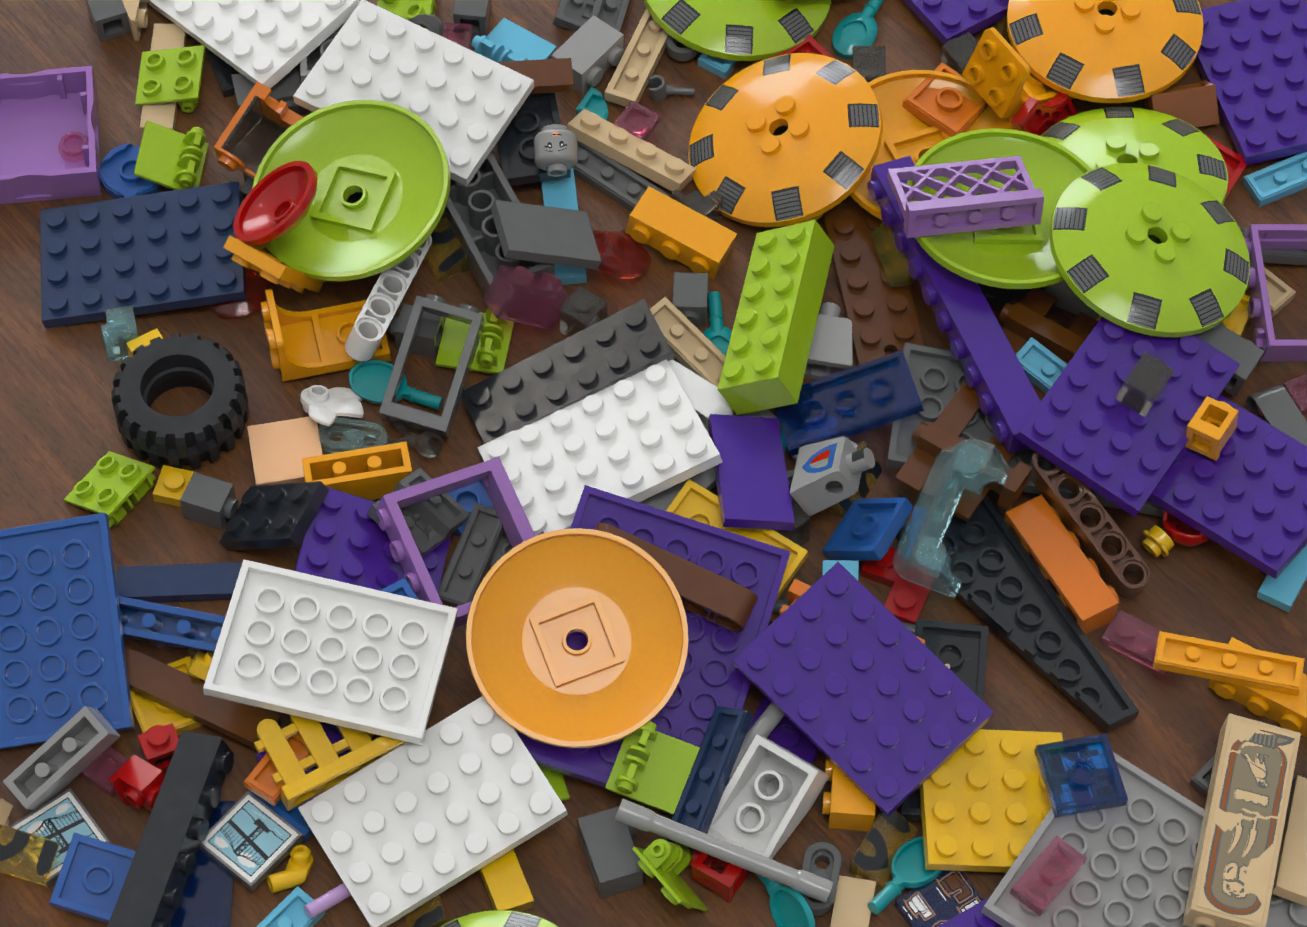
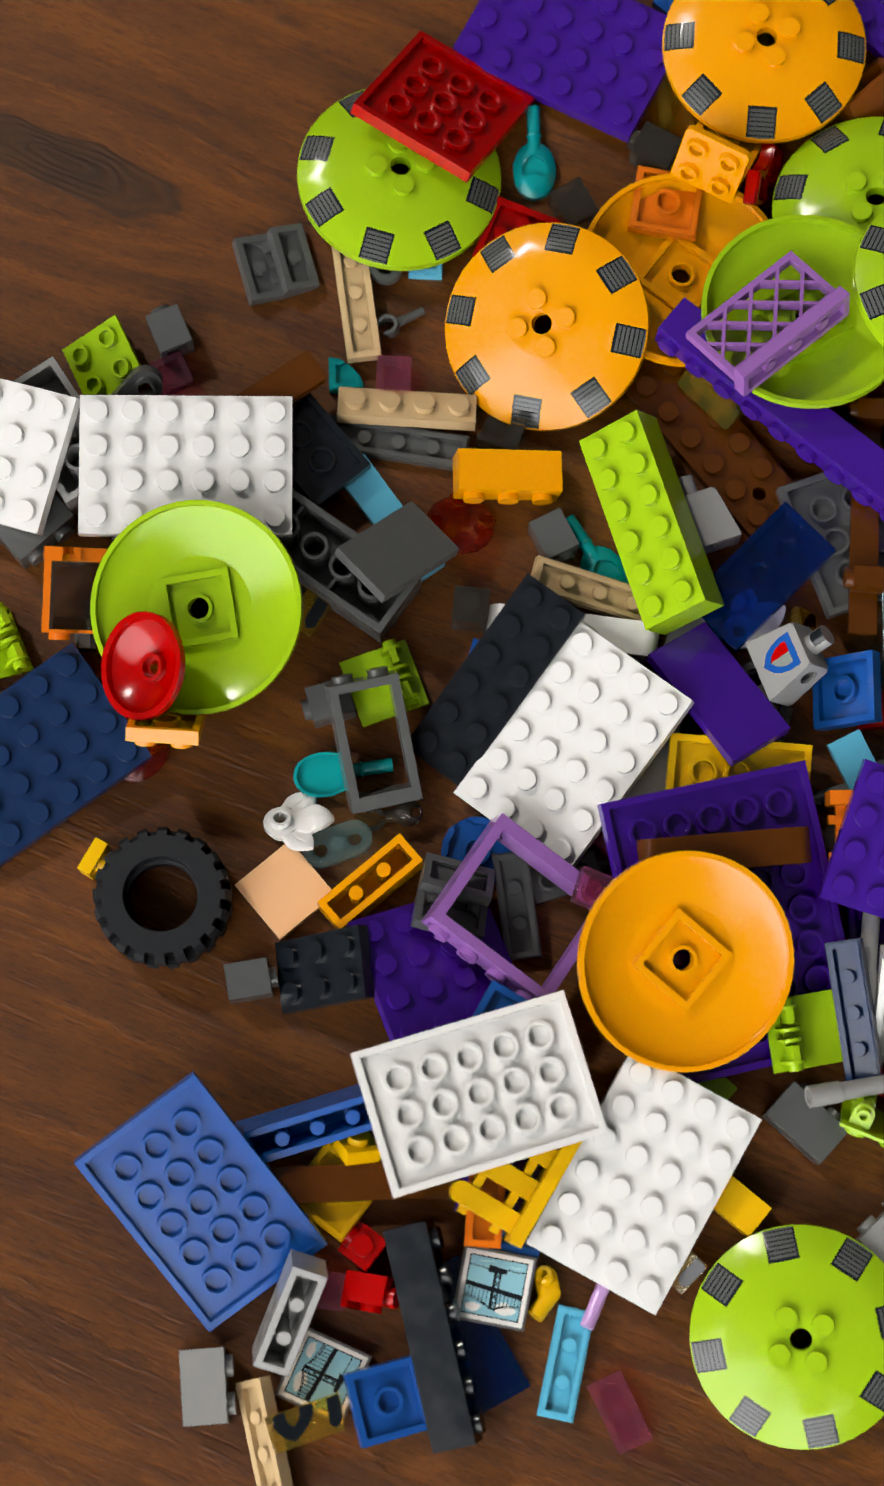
camera: 30 degrees left, 20 degrees up
(113, 486) = (149, 1013): lime hinge -> none
(119, 330) = (60, 856): clear light blue brick -> none
(171, 485) = (206, 979): yellow plate -> none
(178, 582) = (280, 1066): dark blue tile -> none
(312, 340) = (251, 756): light orange bracket -> none
(383, 305) = (293, 701): white beam -> none
(512, 43) = (230, 358): medium azure hinge -> none
(526, 297) = (414, 623): clear pink piece -> none
(555, 150) = (351, 456): light grey head -> none
(592, 52) = (308, 323): light grey brick -> none

